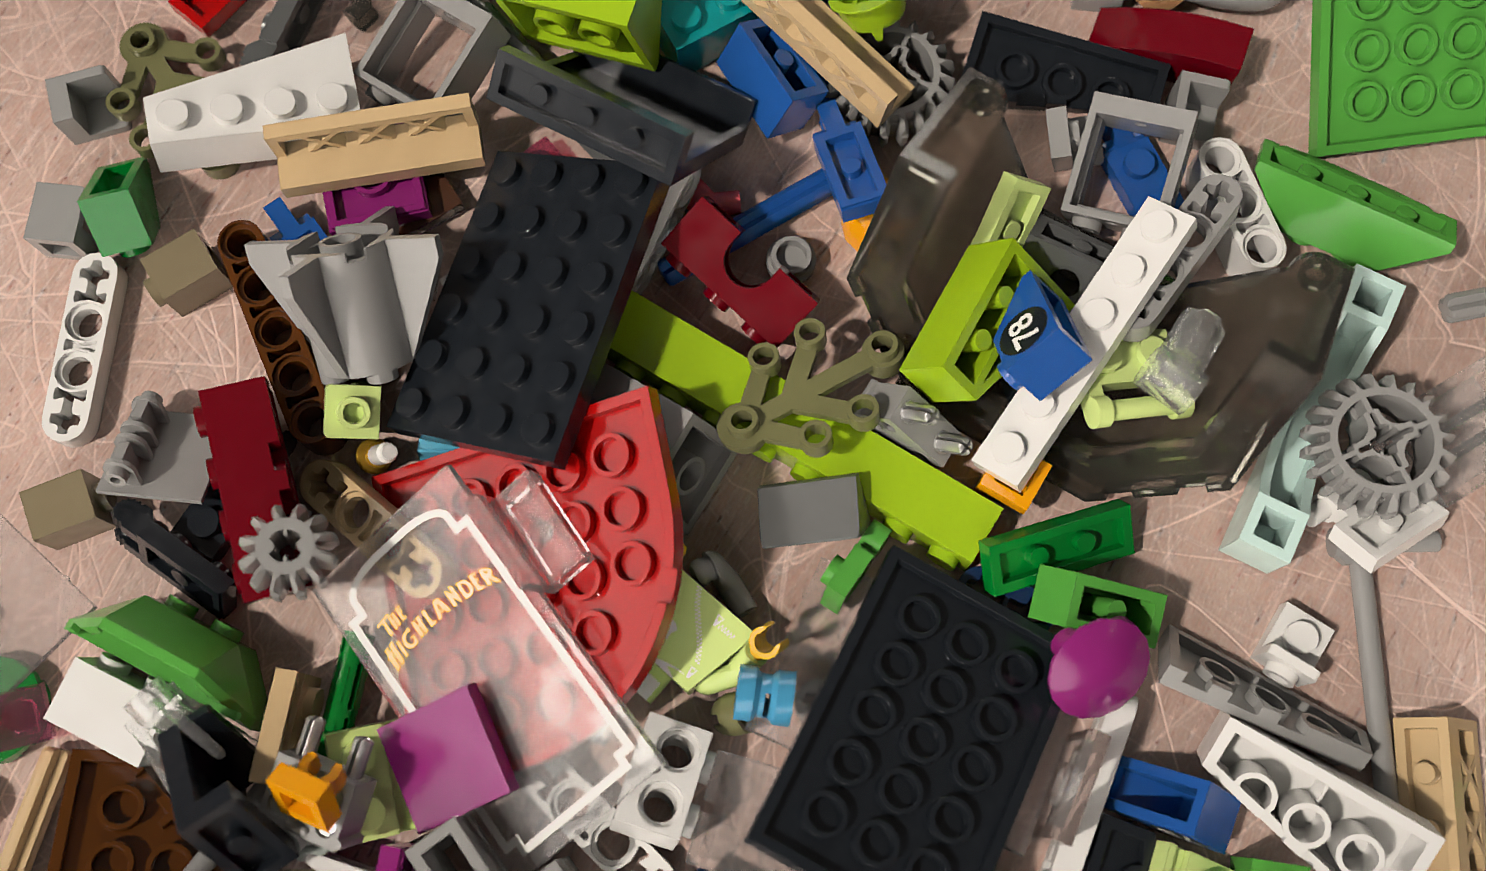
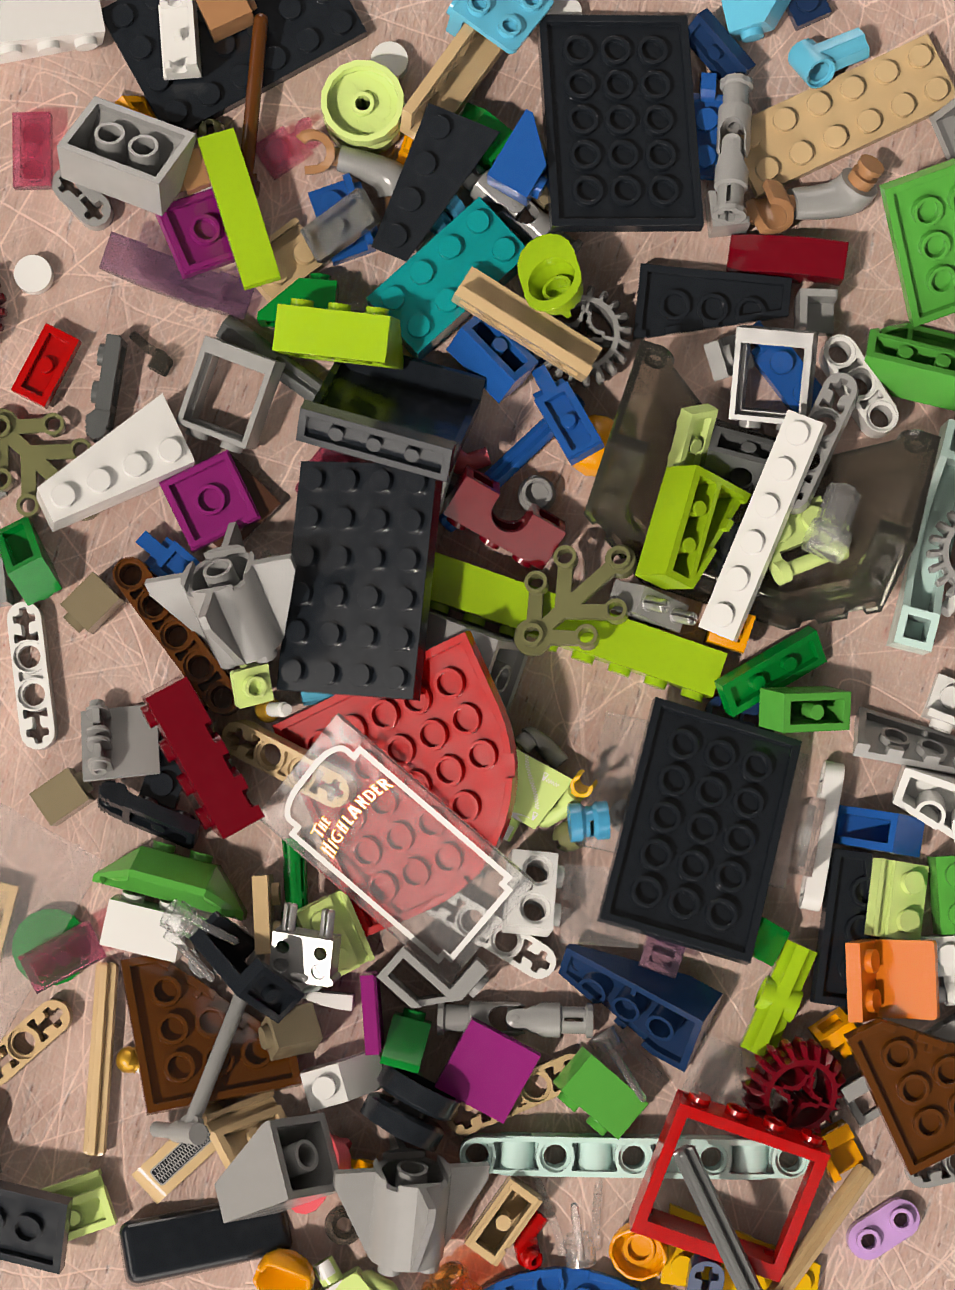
camera: 10 degrees left, 10 degrees up
(279, 573) = (234, 801): light grey gear -> none
(306, 796) = (305, 955): light orange tile -> none
(376, 146) = (213, 481): tan fence -> none
(447, 758) = (384, 910): magenta tile -> none
(531, 534) = (407, 749): clear panel -> none
(812, 511) = (593, 684): dark grey slope -> none
(845, 574) = (625, 723): bright green plate -> none
(1038, 340) = (728, 535): blue slope -> none
(1097, 666) = (810, 753): magenta dish -> none

